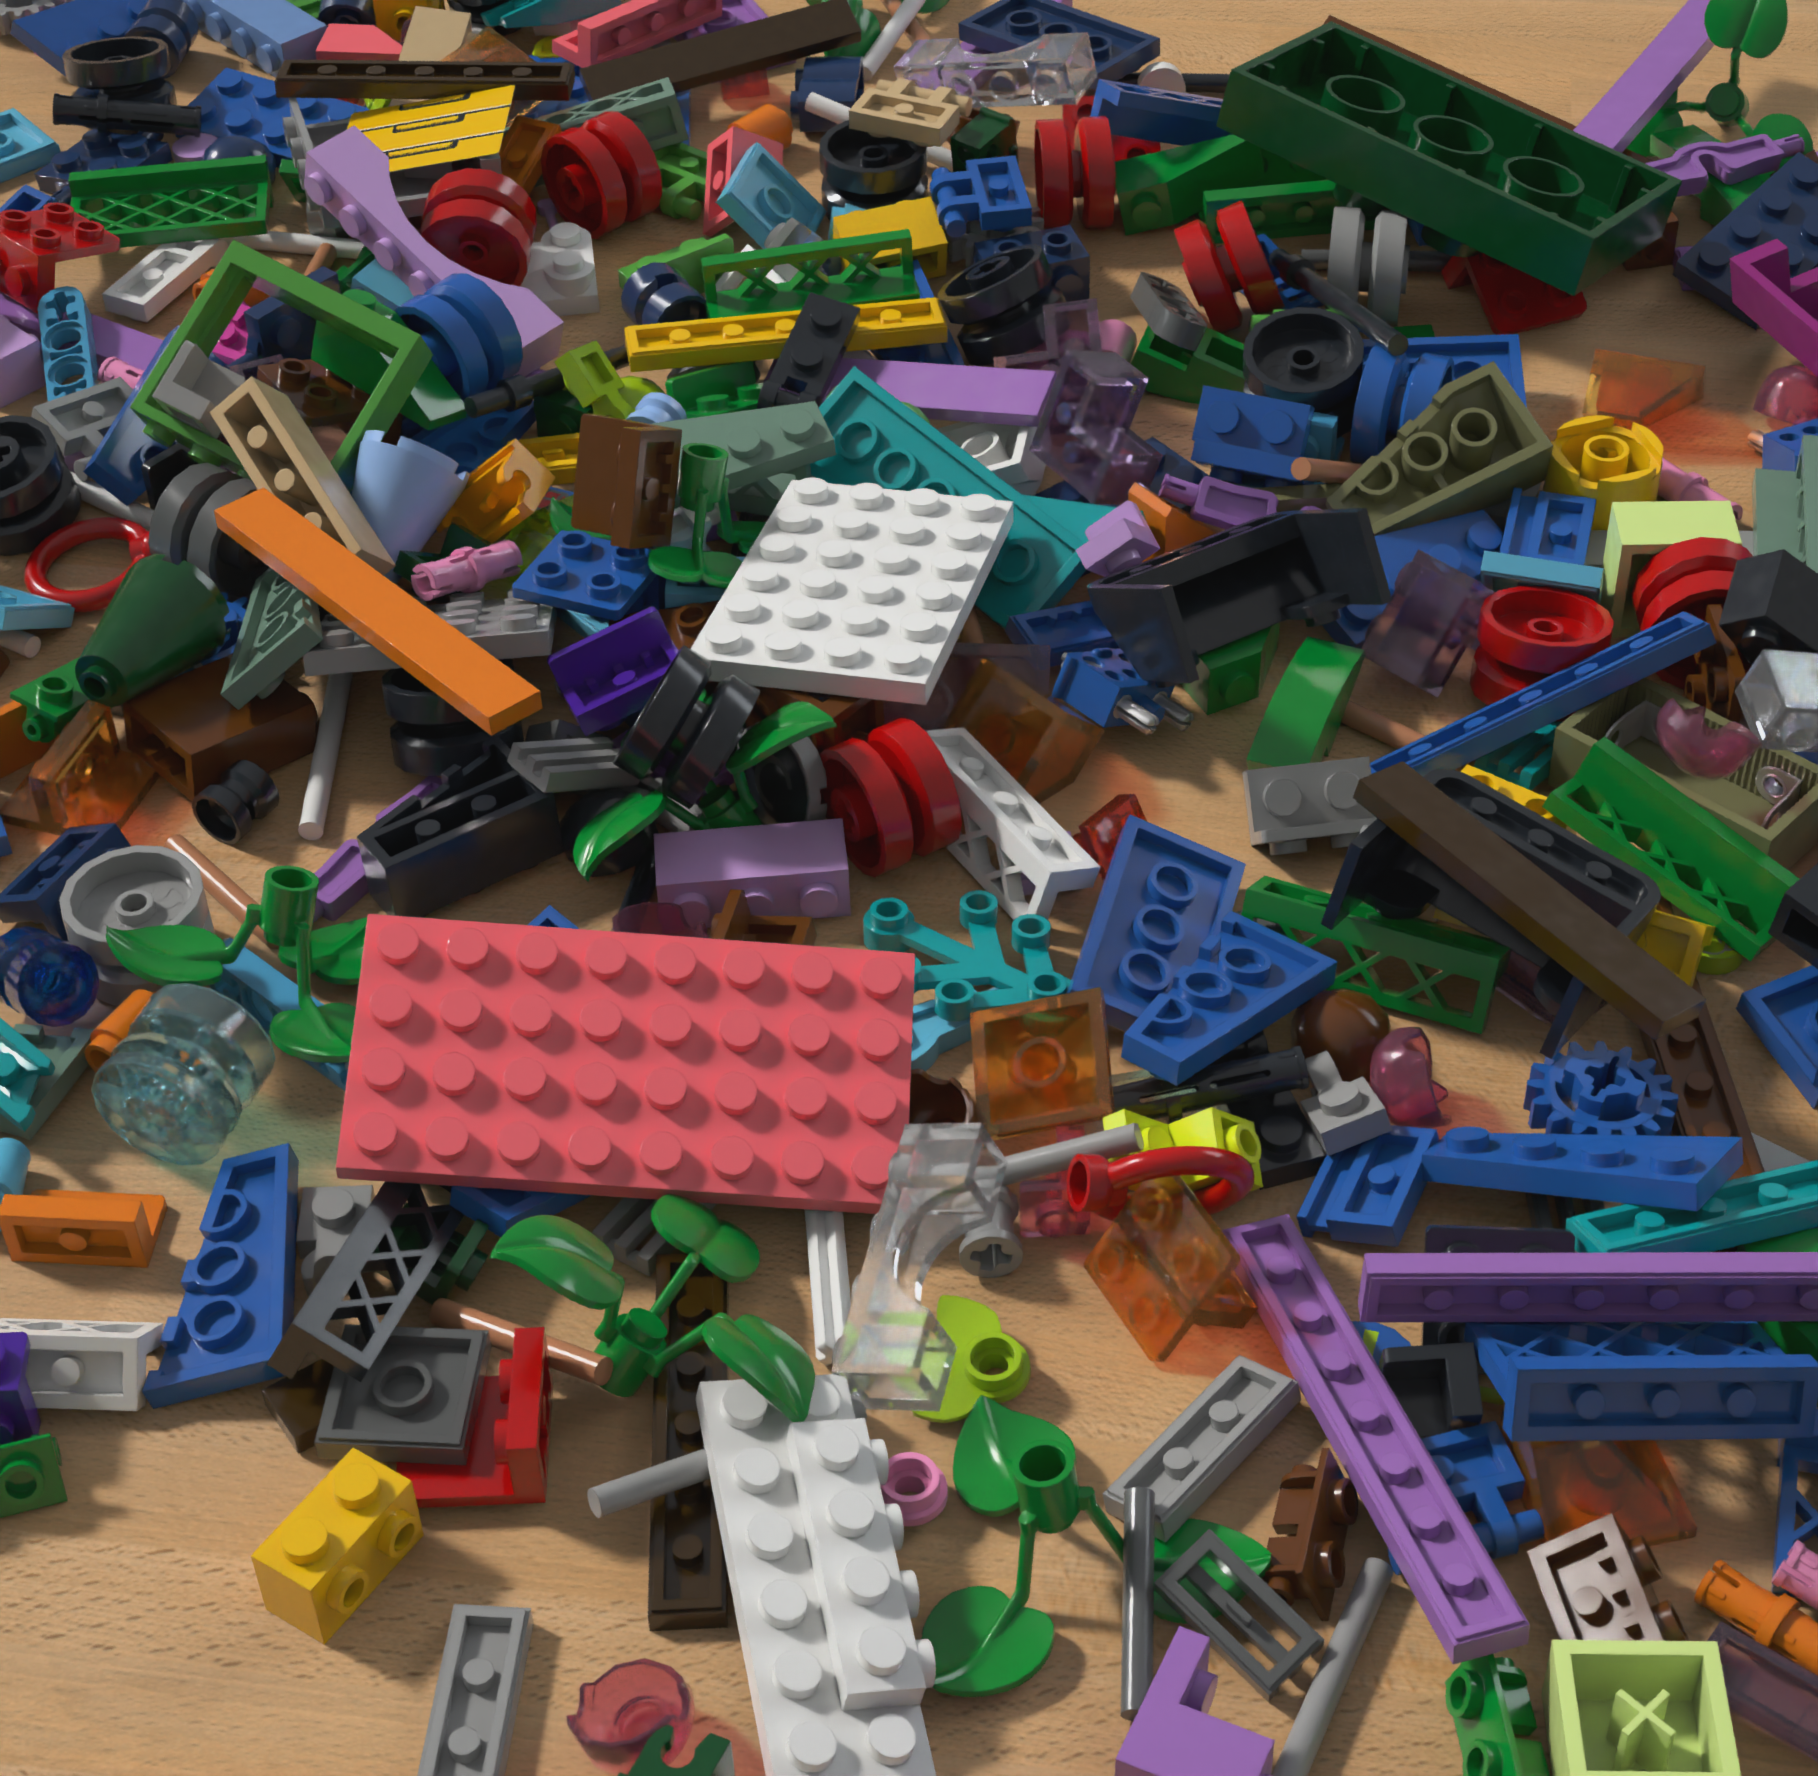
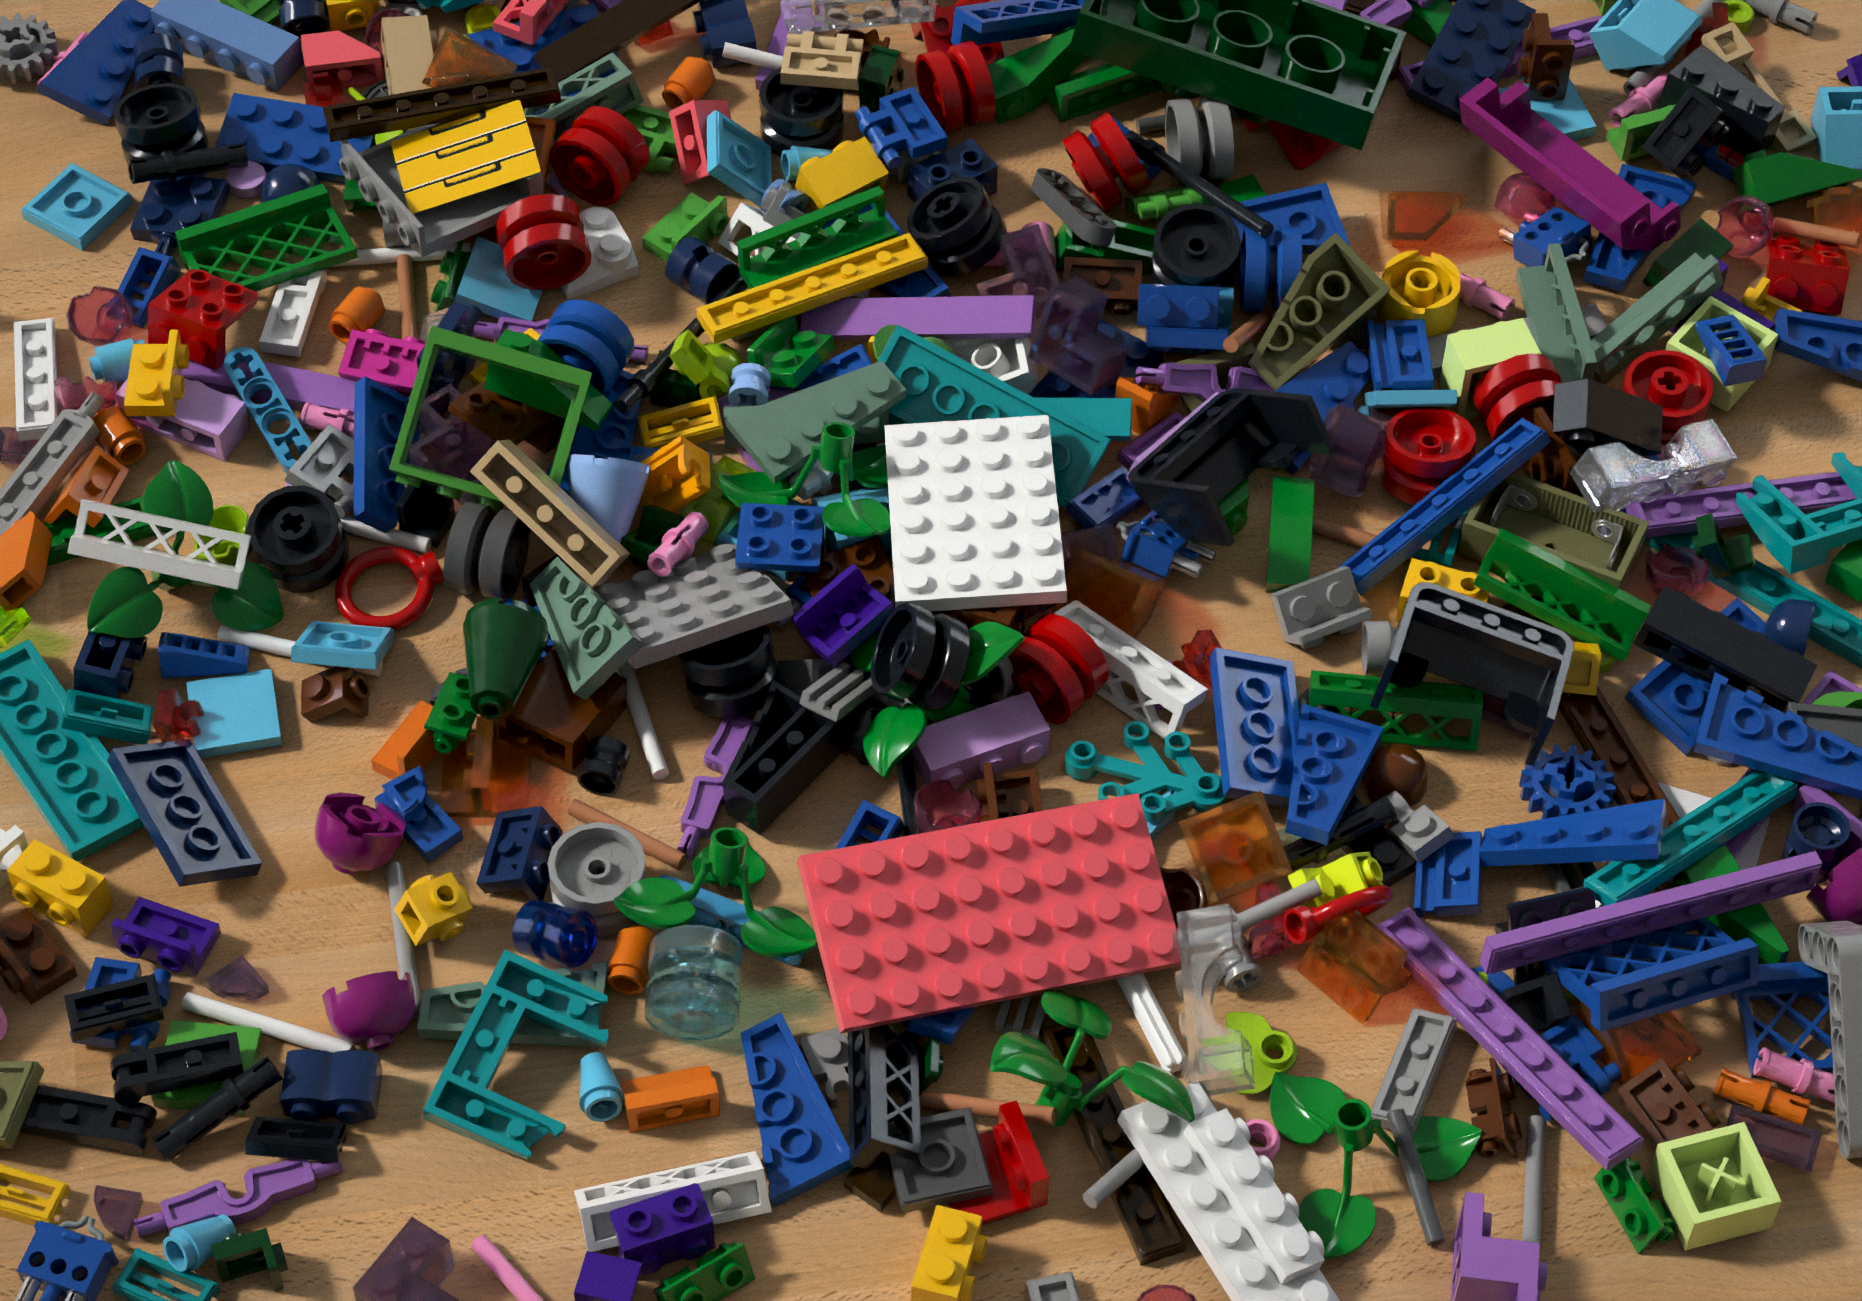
camera: 20 degrees left, 10 degrees up
(195, 388) = (445, 449): light grey panel -> none
(355, 186) = (457, 232): lavender arch -> none
(380, 611) = (667, 609): orange tile -> none
(626, 480) = (784, 461): reddish brown bracket -> none
(811, 353) = (844, 310): black plate -> none
(1117, 541) = (1128, 430): lavender bracket -> none
(1172, 400) = (1112, 276): none -> reddish brown bracket
(1286, 1663) = (1464, 1184): dark grey tile -> none
(1403, 1080) = (1450, 800): clear pink hair -> none
(1530, 900) = (1503, 672): dark brown tile -> none
(1698, 748) = (1566, 521): clear pink hair -> none

